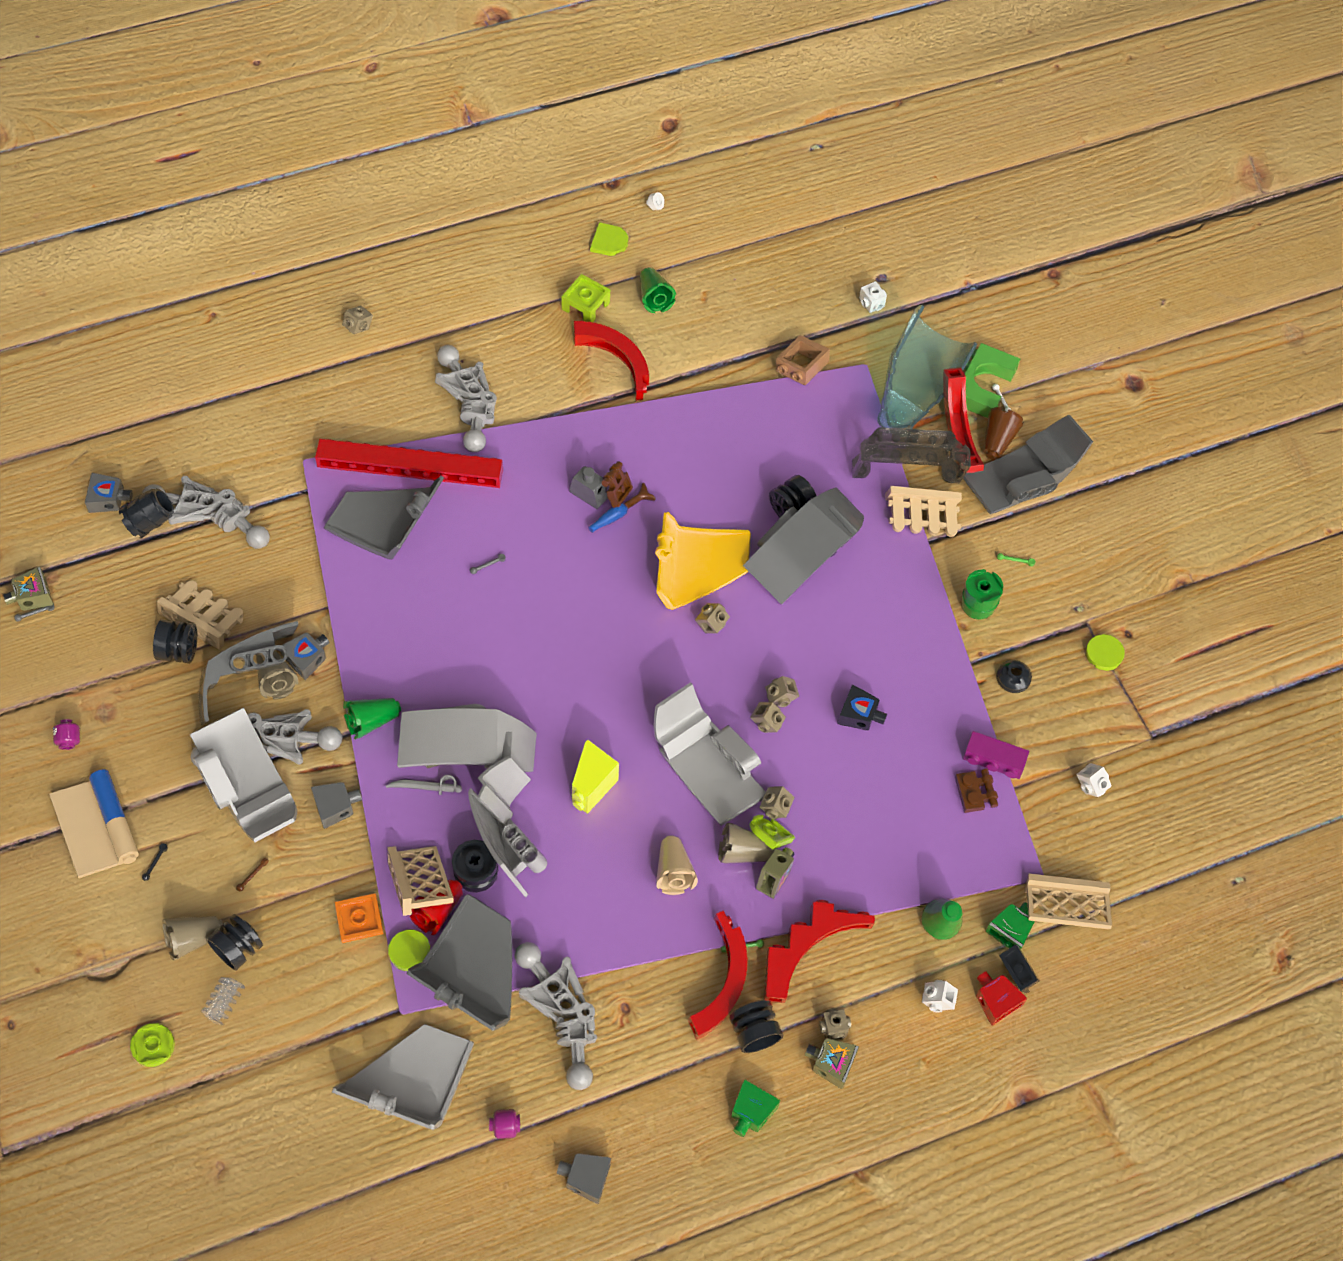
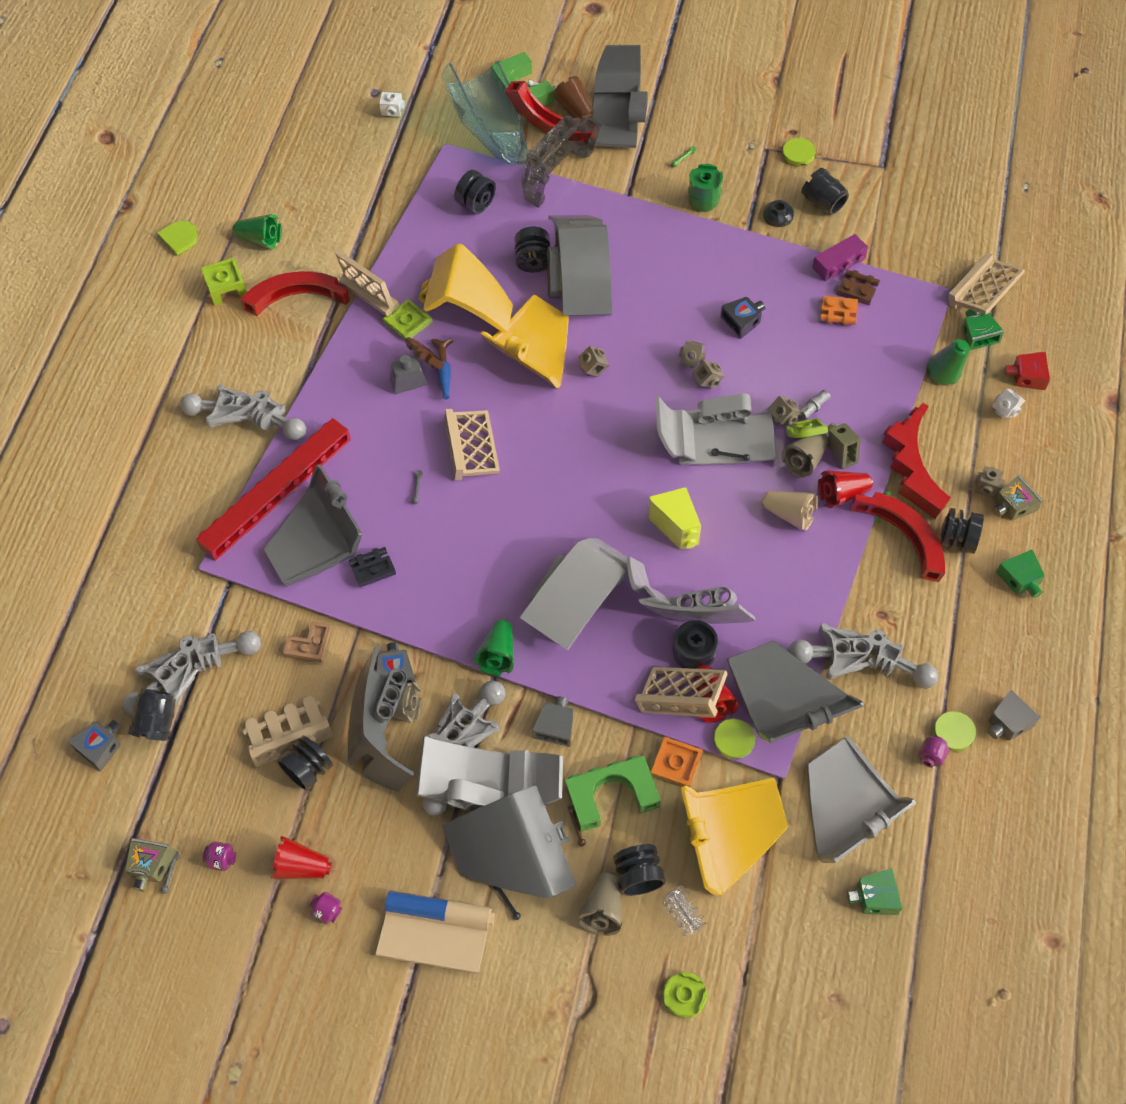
camera: 50 degrees left, 0 degrees up
(64, 634) = (219, 856): none -> magenta head
(91, 690) = (299, 862): none -> red cone
(197, 838) = (512, 846): none -> dark grey panel
(286, 859) = (632, 773): none -> bright green arch
(288, 584) = (311, 648): none -> medium nougat plate
(318, 993) = (733, 829): none -> yellow panel
(335, 1148) = (877, 894): none -> green torso
(357, 320) = (94, 450): dark tan brick -> none
(383, 582) = (374, 570): none -> black plate
(428, 785) = (600, 633): light grey sword -> none
(542, 1133) = (956, 730): none -> lime tile
(544, 568) = (456, 448): none -> tan fence
(650, 453) = (407, 320): none -> lime tile
(655, 201) = (173, 185): white tile -> none
(655, 402) = (366, 285): none -> tan fence
(692, 772) = (715, 452): none -> black hinge
(708, 477) = (466, 283): none -> yellow panel
(729, 896) = (842, 486): none -> red cone
(807, 348) = (406, 167): medium nougat window -> none
(807, 825) = (814, 404): none -> light grey pin
(820, 417) = (475, 191): none -> black wheel
(924, 499) = (602, 170): tan fence -> none
(938, 784) = (839, 310): none -> orange plate
(1019, 968) = (1019, 342): black panel -> none
(1066, 699) = (825, 191): none -> black piece
(1094, 780) = (899, 214): white brick -> none

